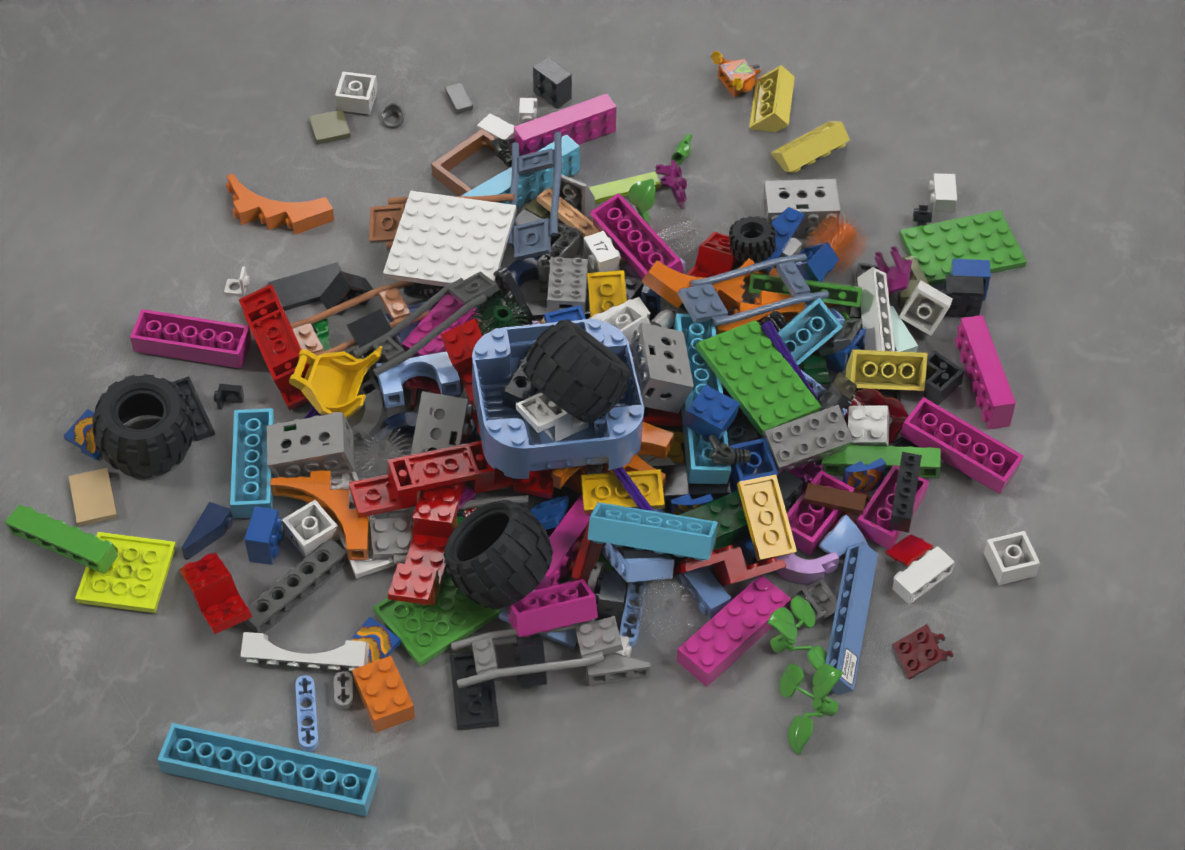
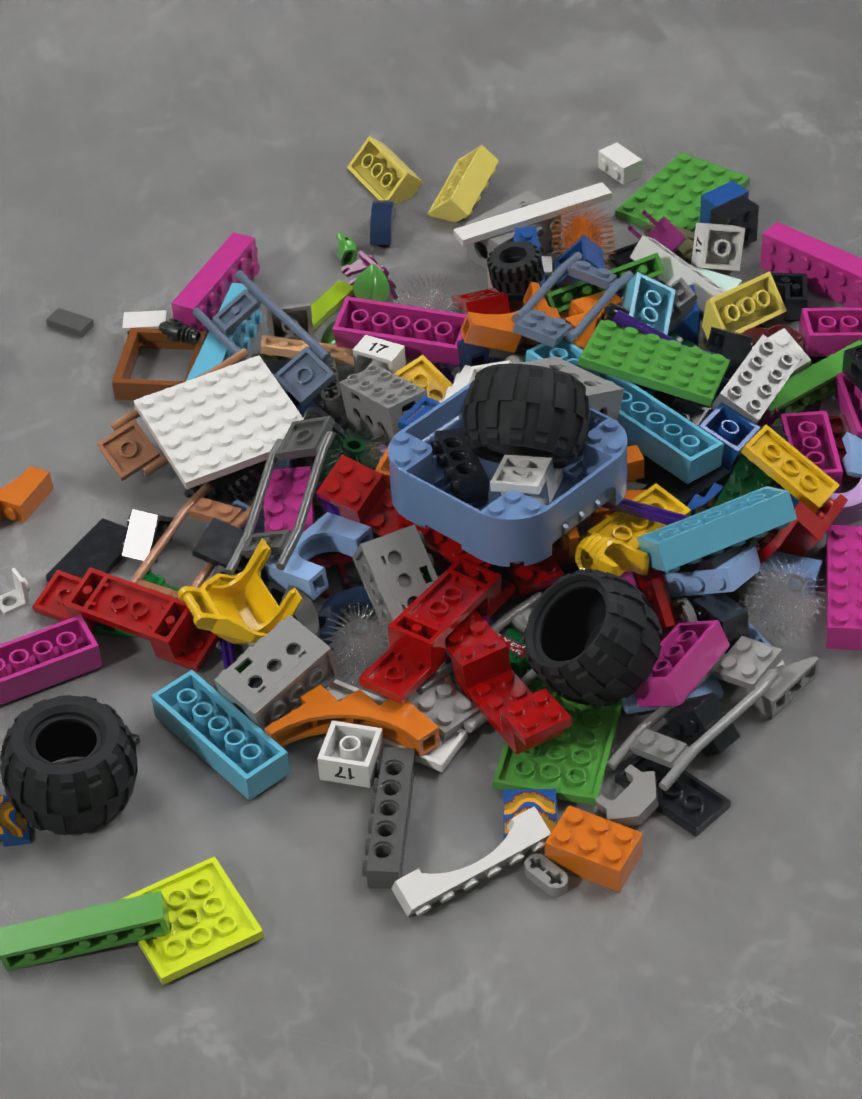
camera: 35 degrees left, 10 degrees down
(92, 497) = (67, 876): tan tile -> none
(209, 528) = (237, 820): dark blue slope -> none
(215, 593) = (318, 870): red bracket -> none
(228, 393) = (119, 691): black bracket -> none
(264, 535) = (310, 787): blue brick -> none
(268, 769) = (558, 991): medium azure brick -> none
(304, 713) = (529, 922): light blue beam -> none
(392, 108) = (16, 361): dark grey piece -> none
(438, 681) = (635, 802): none -> light grey piece
(527, 110) = (156, 295): white brick -> none
(552, 82) = (159, 257): black brick -> none
(567, 505) = (610, 556): none -> yellow hair
(711, 413) = (660, 404): blue brick -> none
(725, 141) = (382, 222): none -> dark blue arch
(725, 454) = (710, 429): pearl dark grey piece -> none
(736, 75) = (326, 170): orange torso -> none
(815, 201) = (531, 214): none -> white tile
(835, 498) = (822, 426): reddish brown tile -> none
(865, 477) = (820, 395): slope -> none
(922, 215) = (623, 188): black gear -> none

